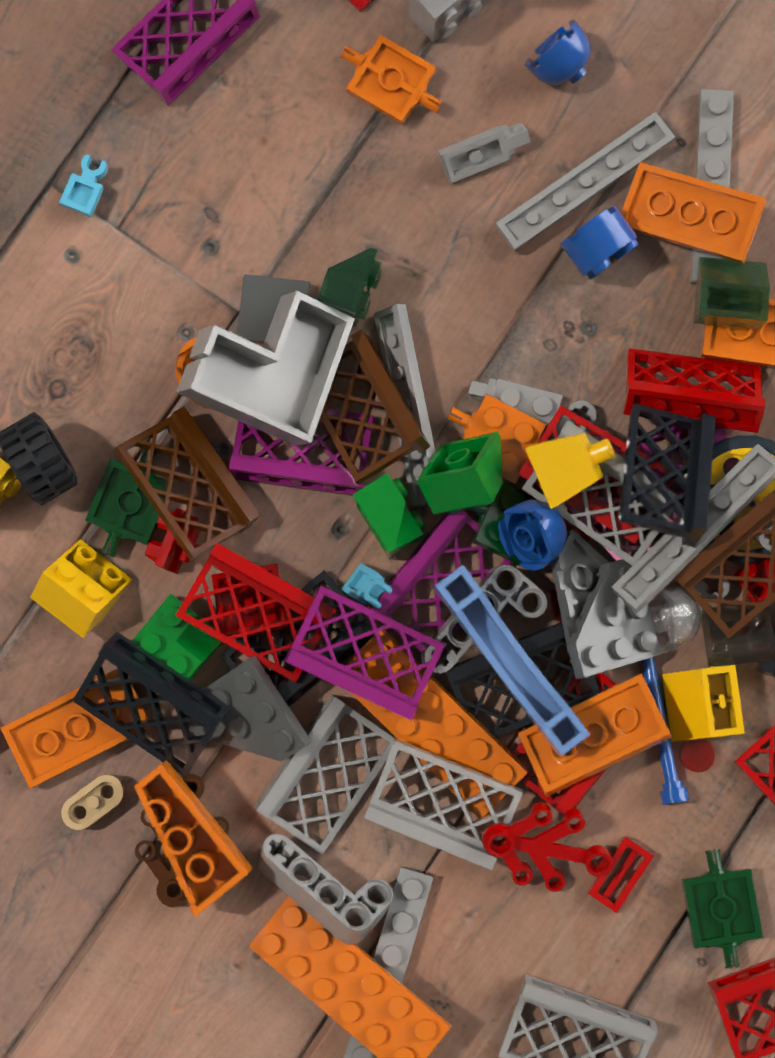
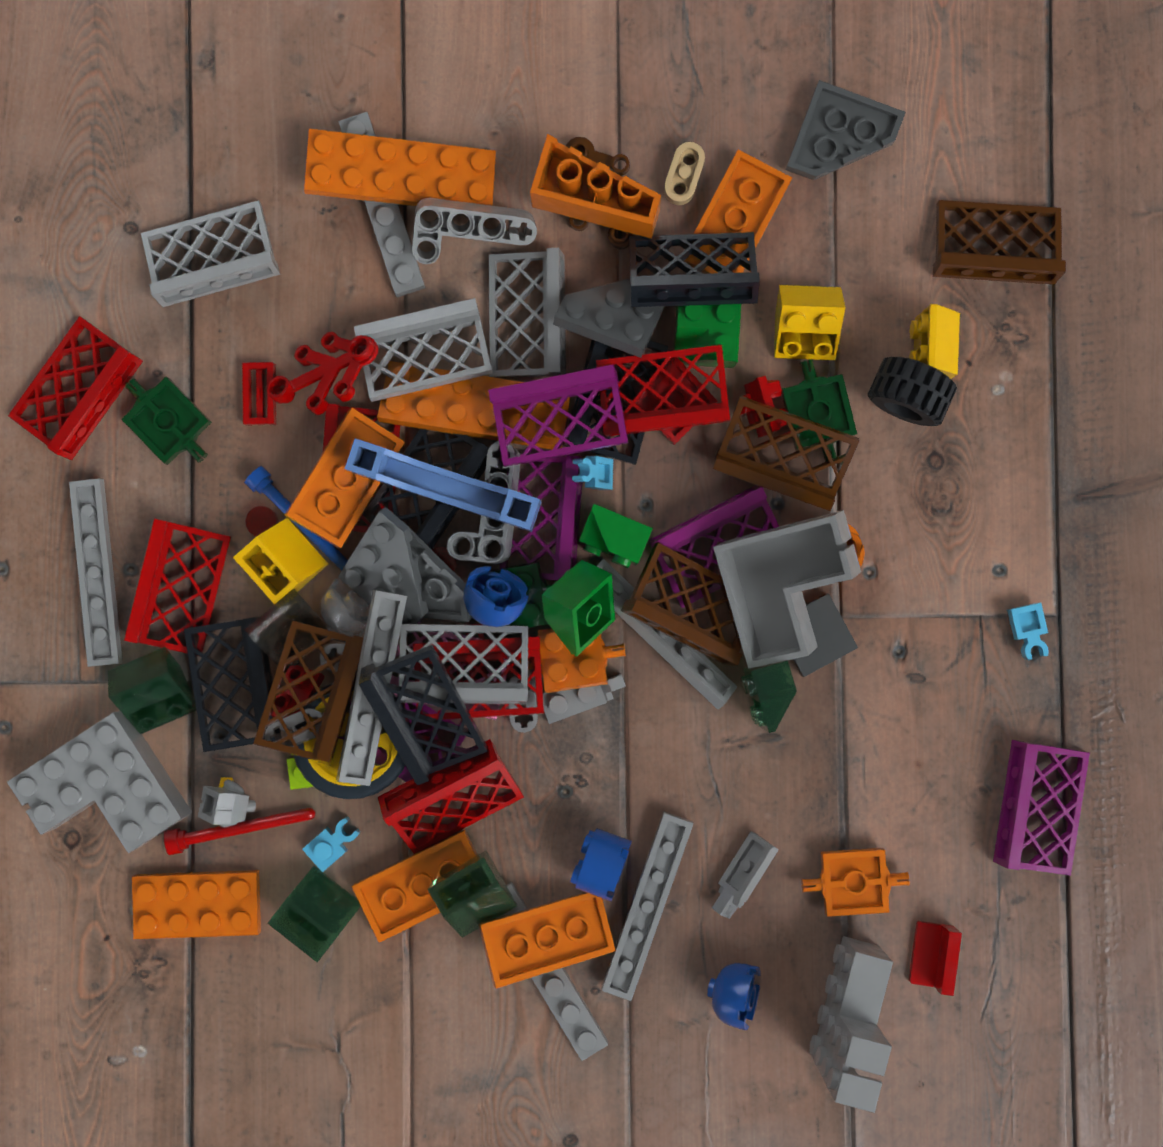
camera: 145 degrees right, 5 degrees up
(568, 465) = (503, 664): yellow torso -> none

